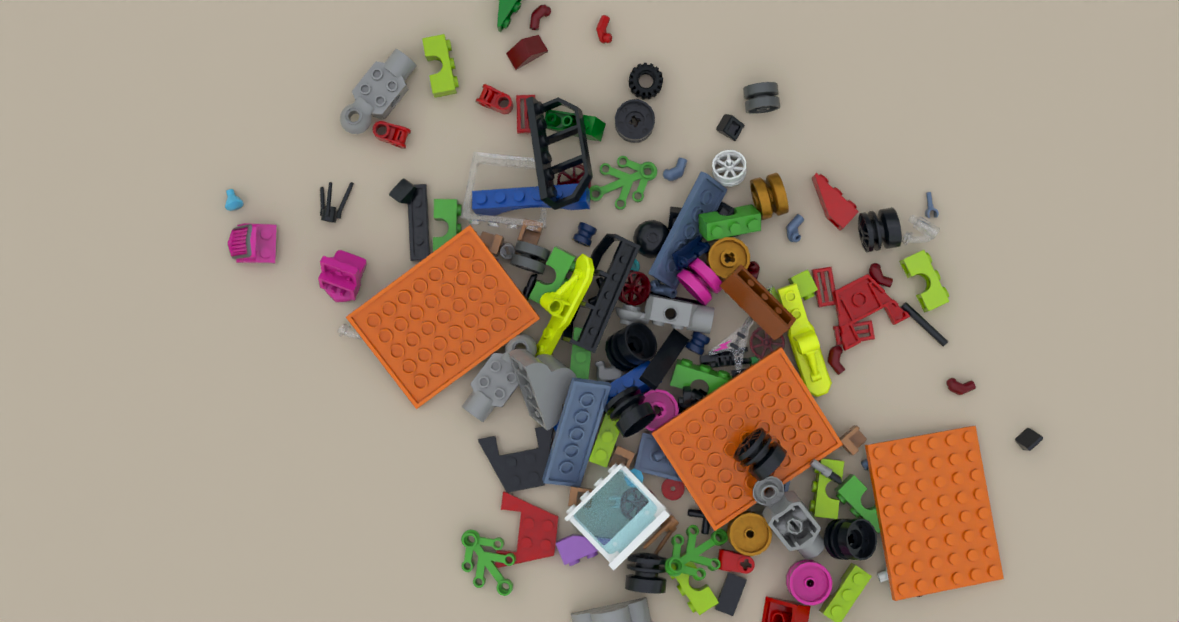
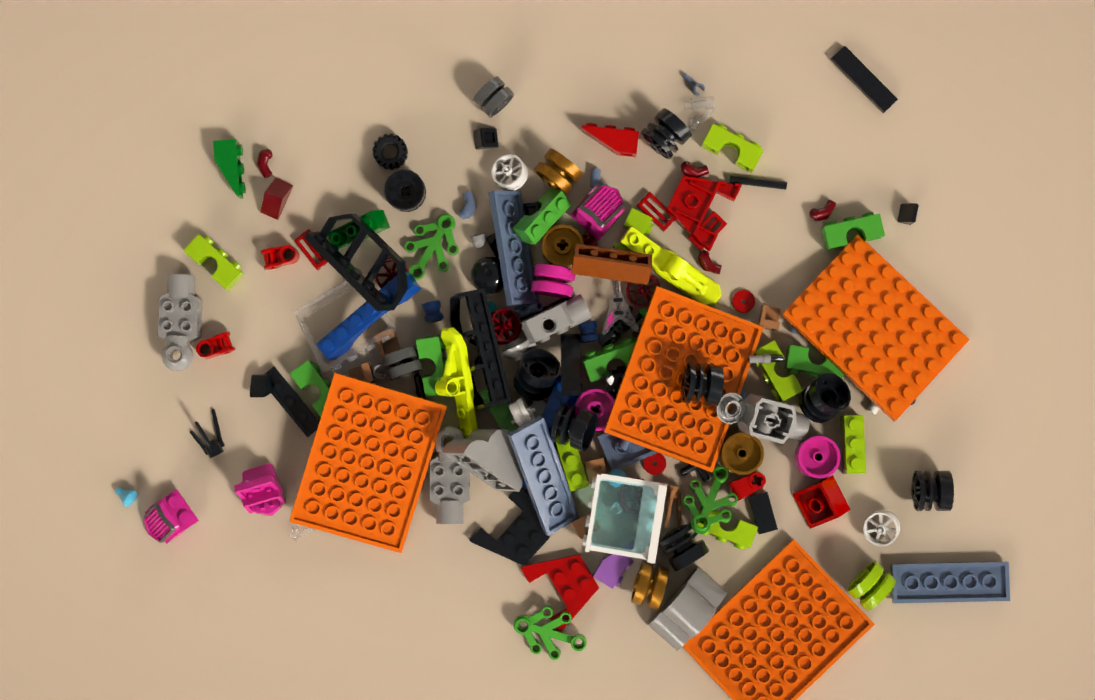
camera: 30 degrees left, 0 degrees up
(596, 368) = (521, 412): none -> white wheel
(596, 585) = (648, 585): none -> pearl gold wheel
(604, 37) = (329, 140): red arm -> none
(664, 204) = (478, 240): none -> light grey hinge
(690, 252) = (528, 264): dark blue hinge -> none
(779, 251) = (599, 210): none -> dark pink piece
(835, 411) = (748, 297): none -> red wheel
(988, 426) = (868, 226): none -> bright green arch
(1072, 304) = (864, 79): none -> black tile

